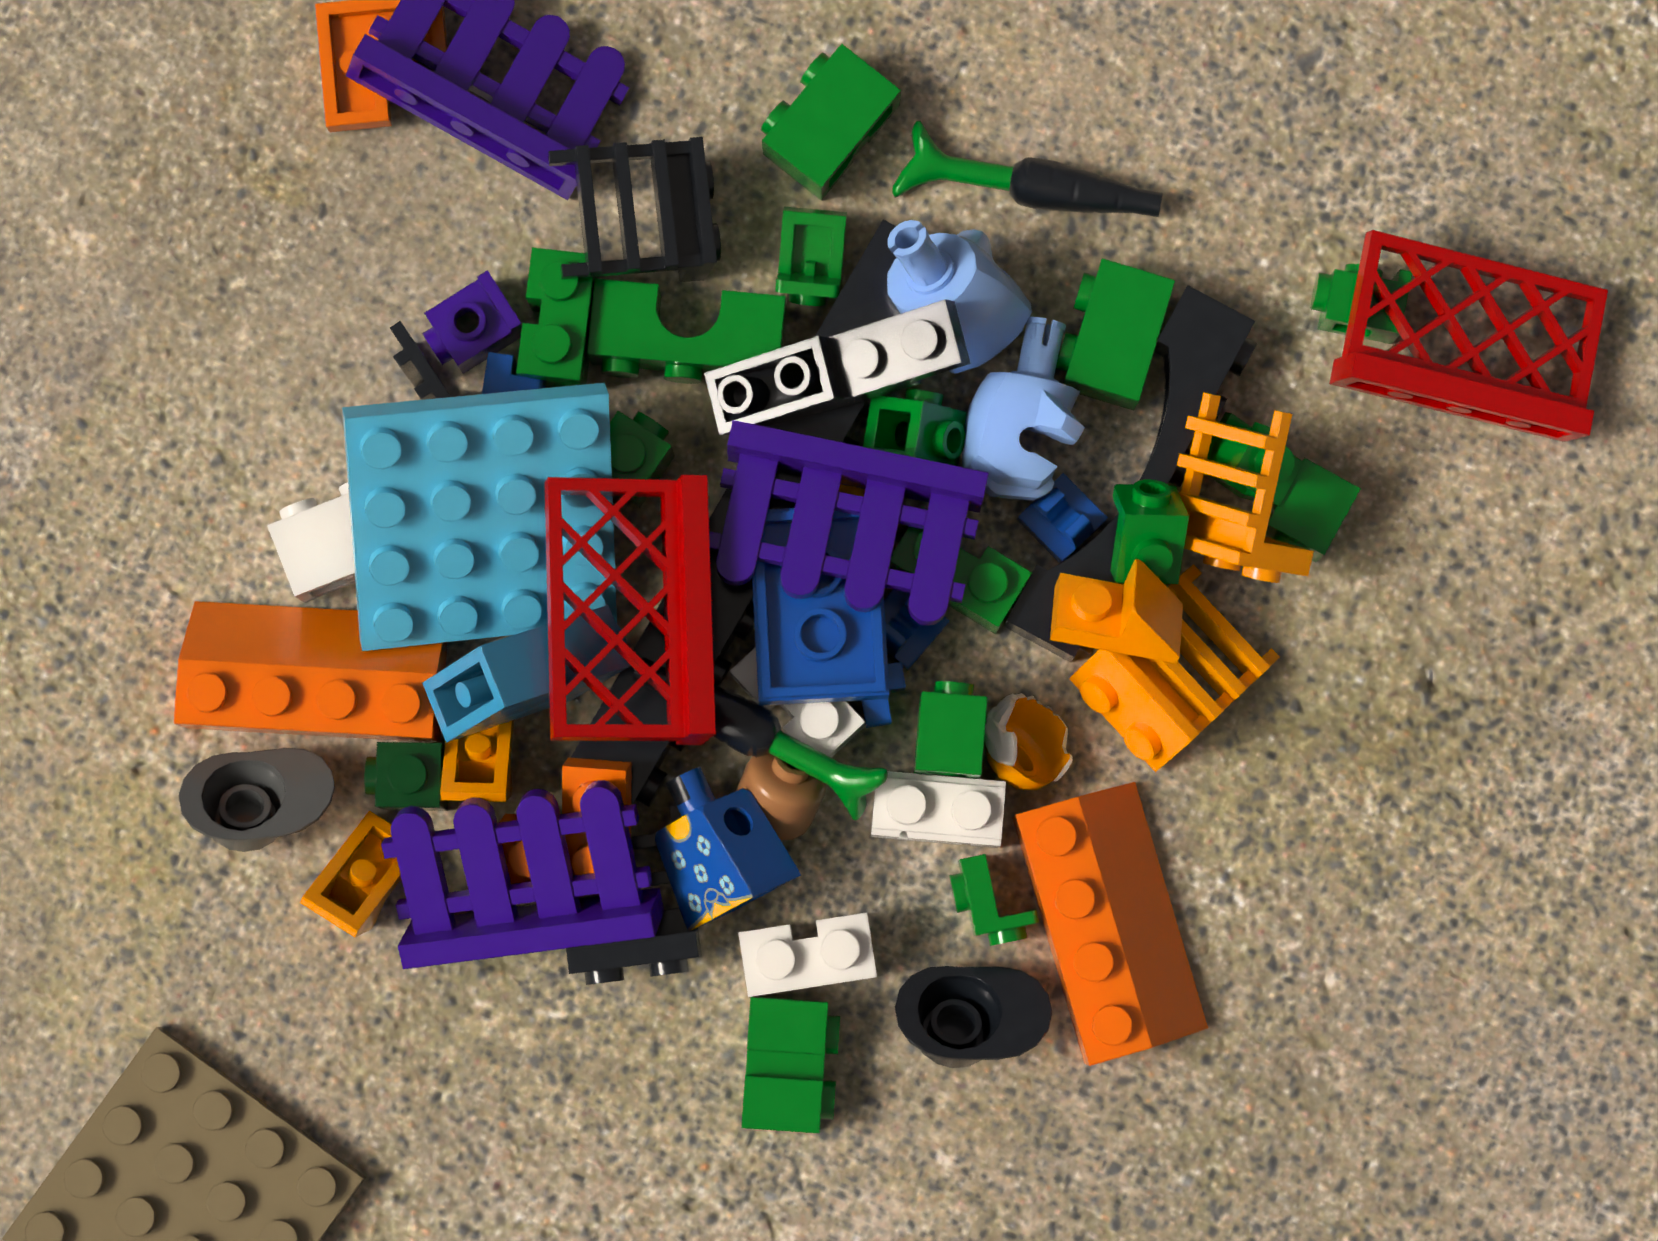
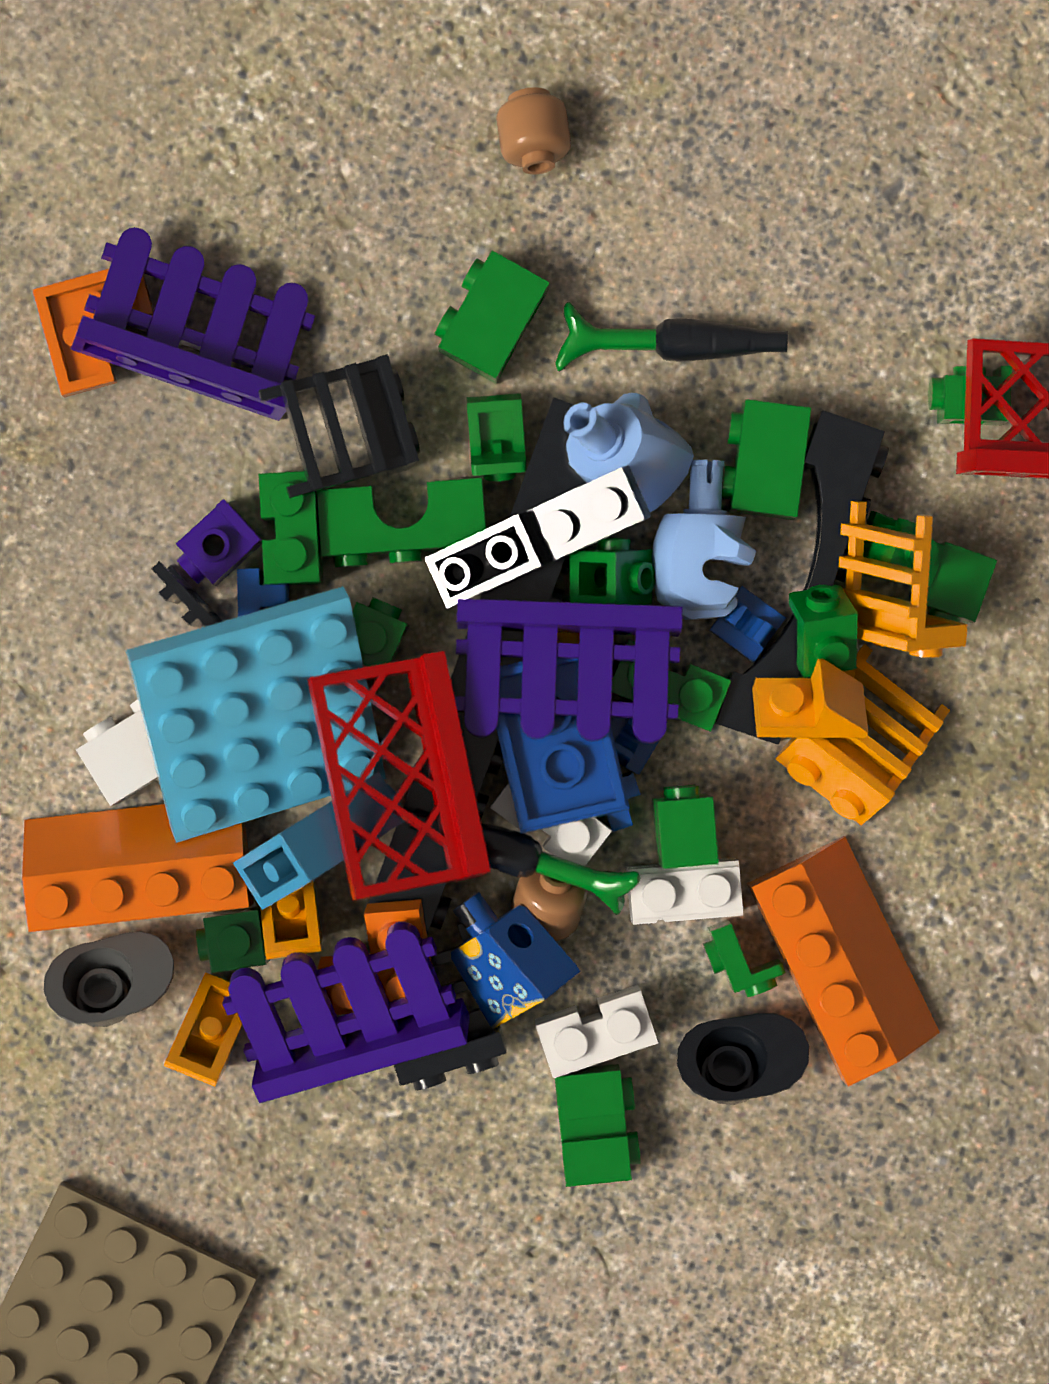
camera: 15 degrees left, 5 degrees up
(1026, 742) = (750, 822): light orange hair -> none

